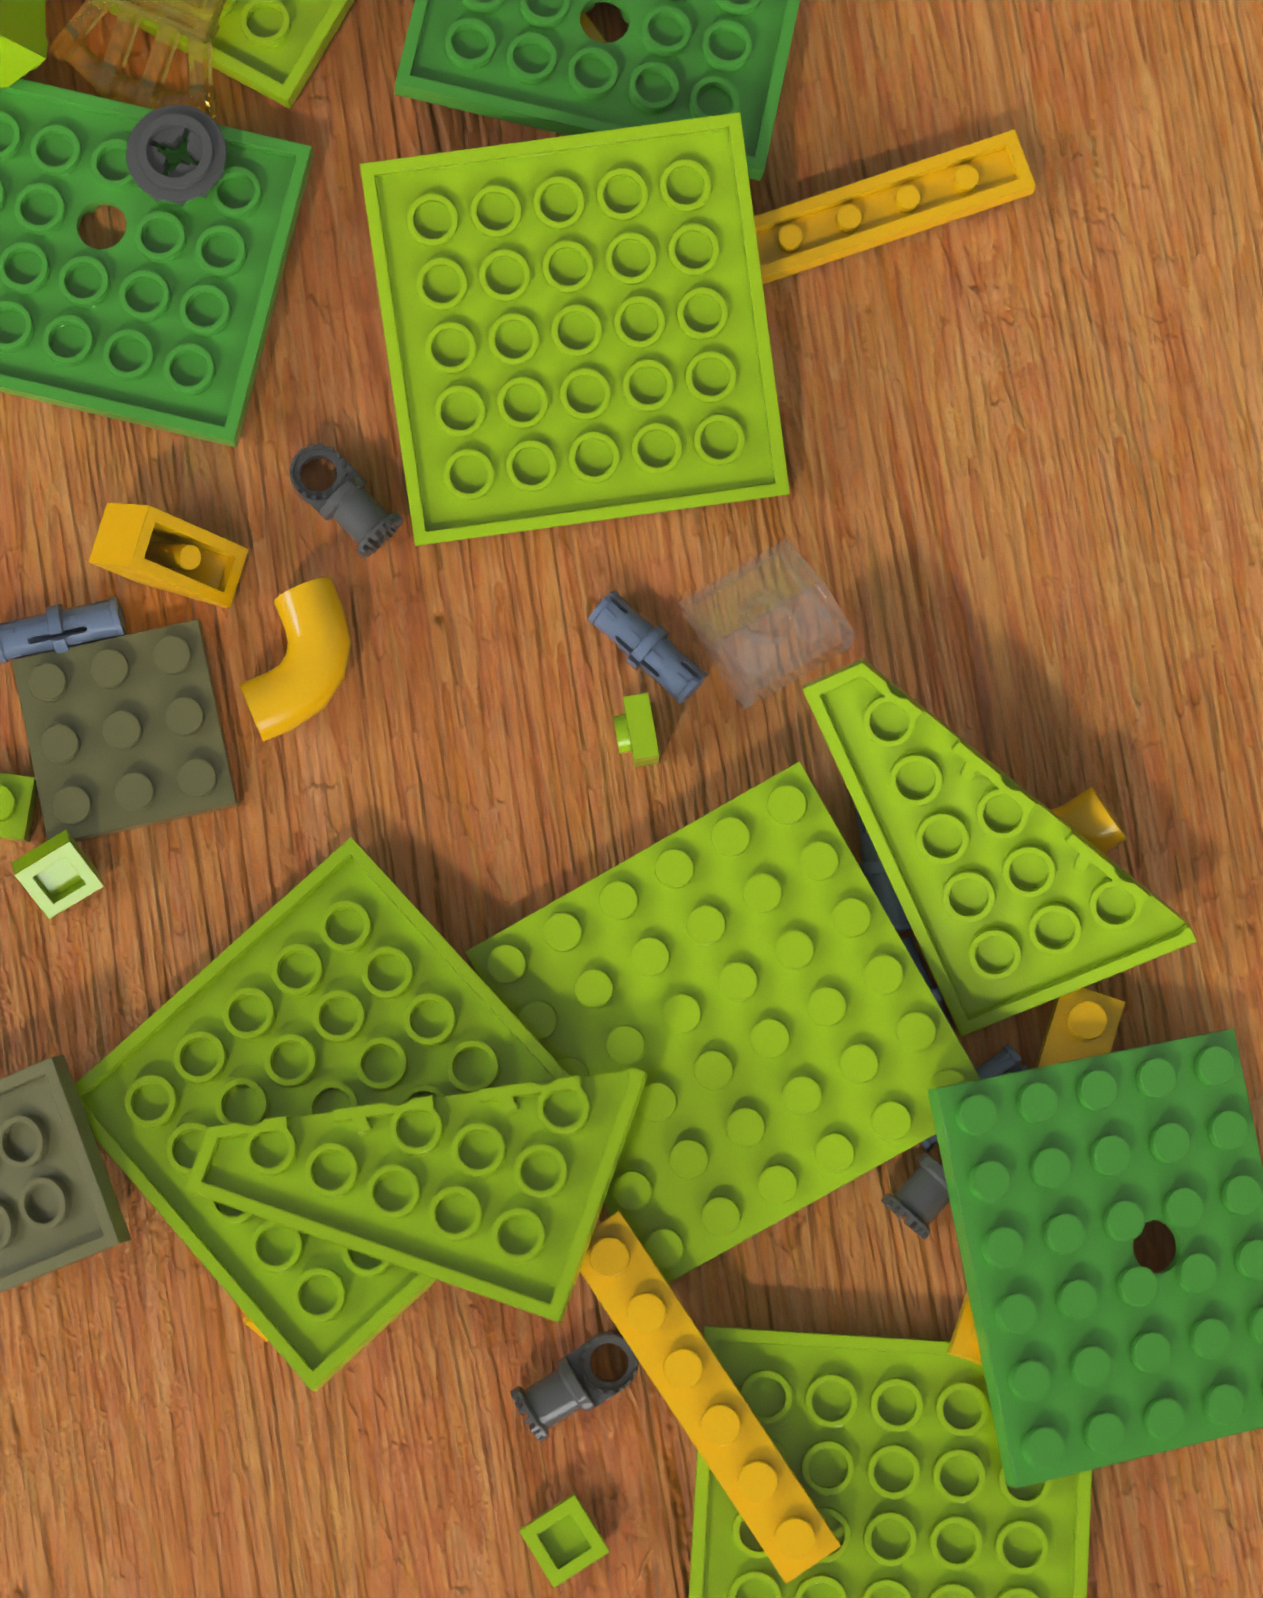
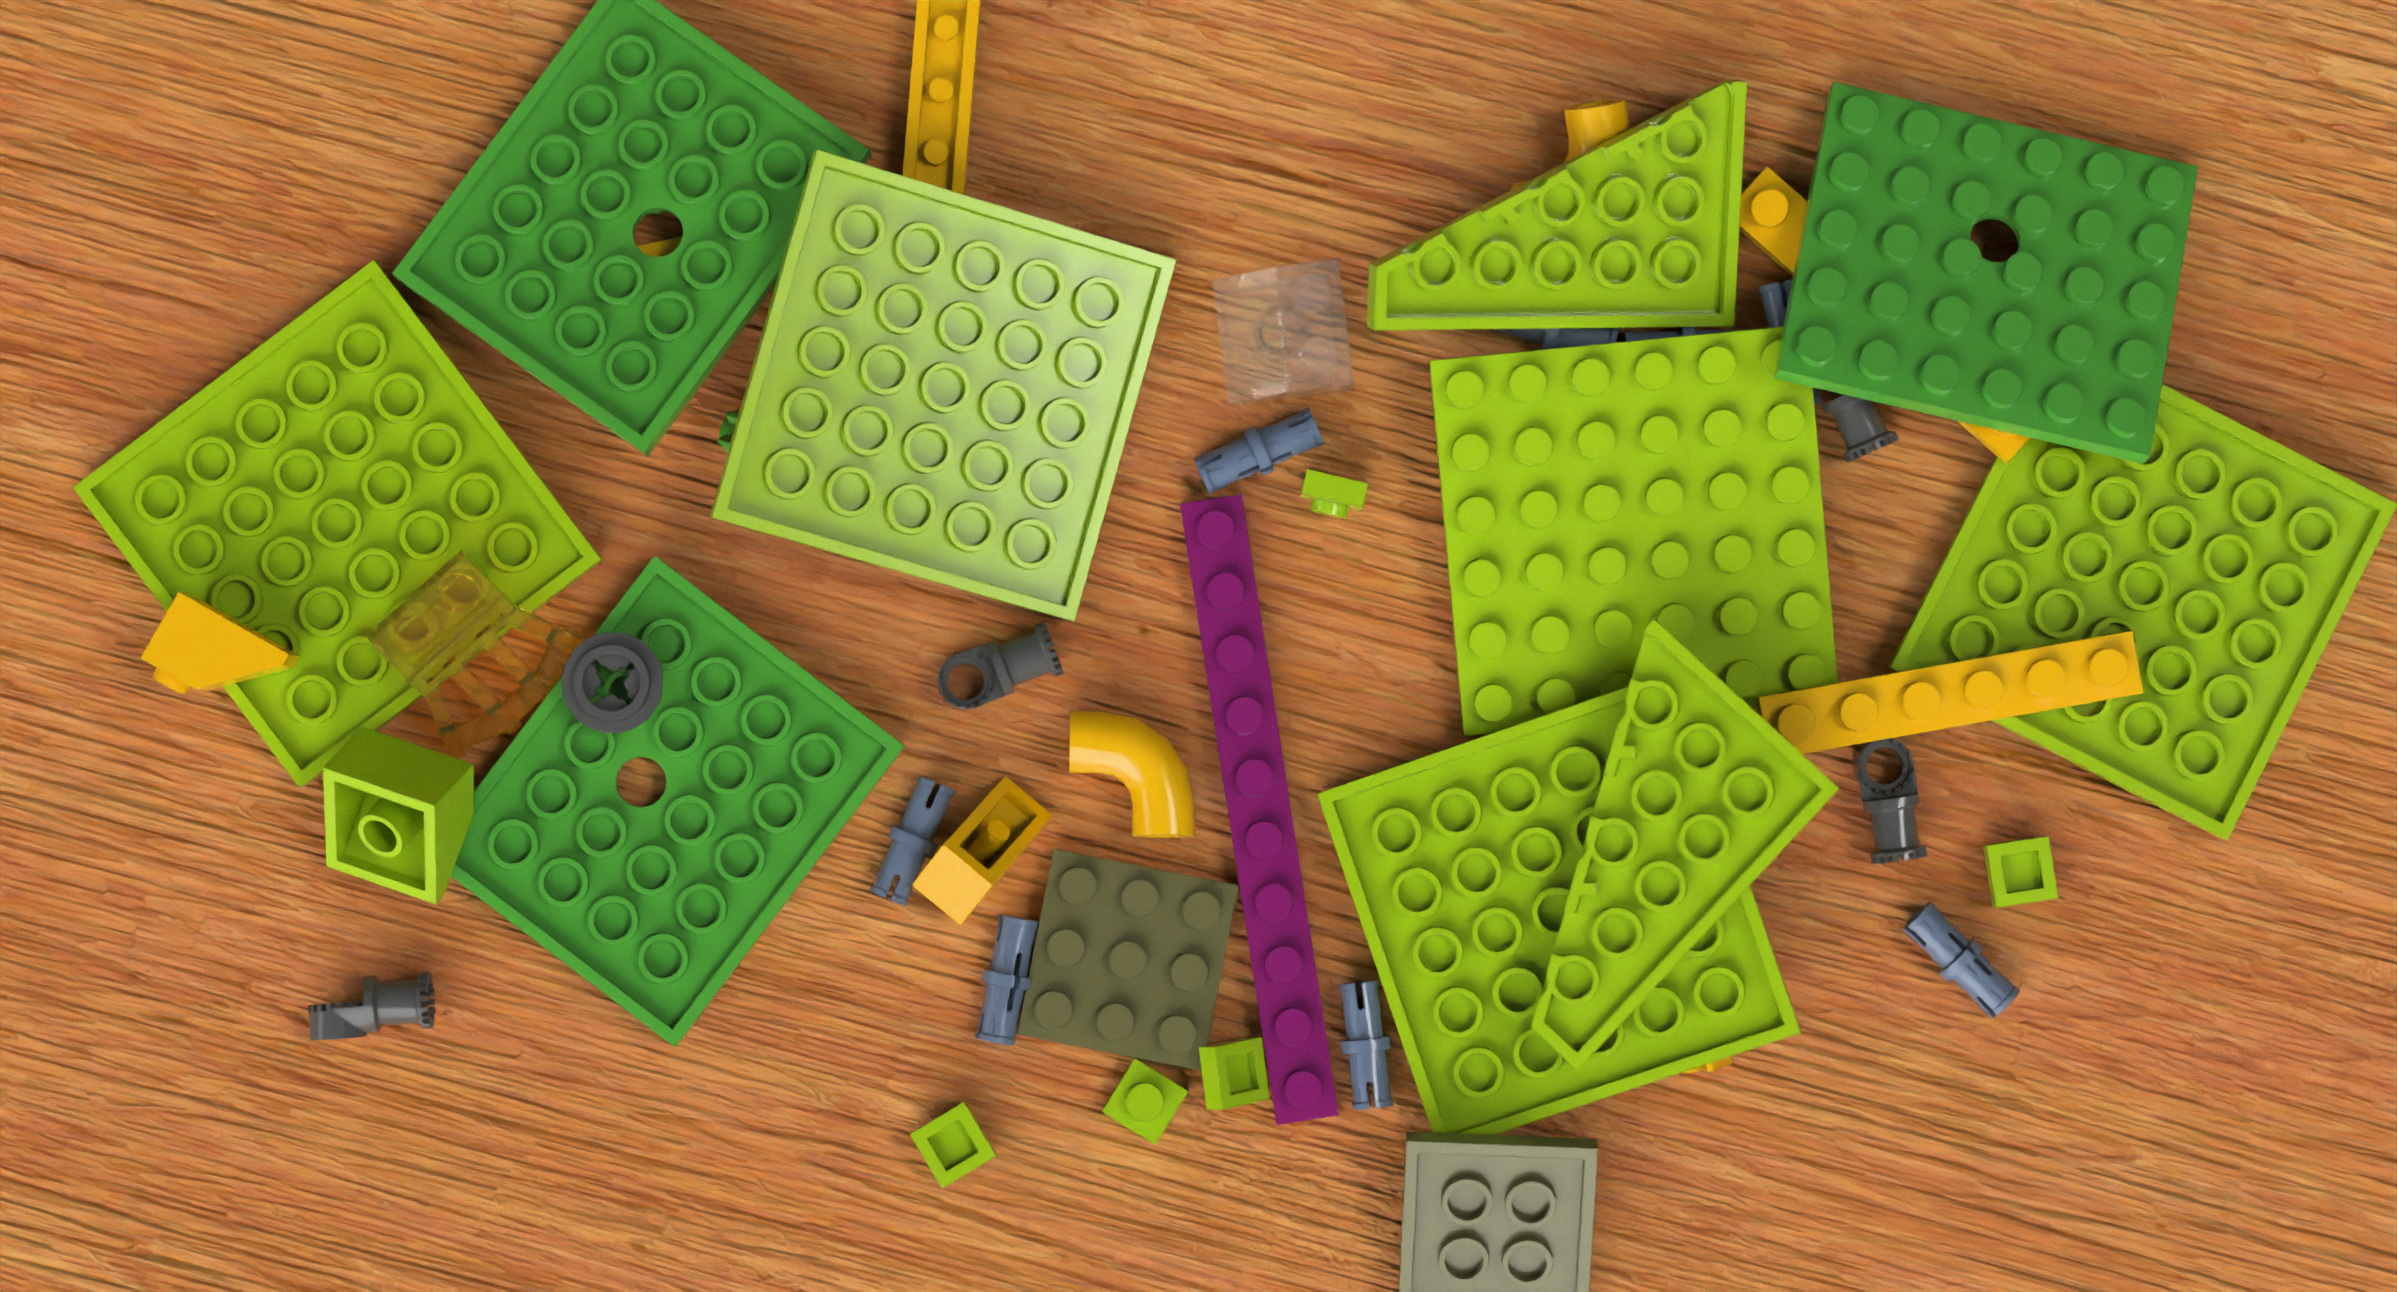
camera: 65 degrees left, 5 degrees up
(136, 986) = (1366, 1044): none -> sand blue pin
(153, 488) = (912, 840): none -> sand blue pin
(313, 794) = (1259, 809): none -> magenta plate
(455, 1519) = (1960, 960): none -> sand blue pin

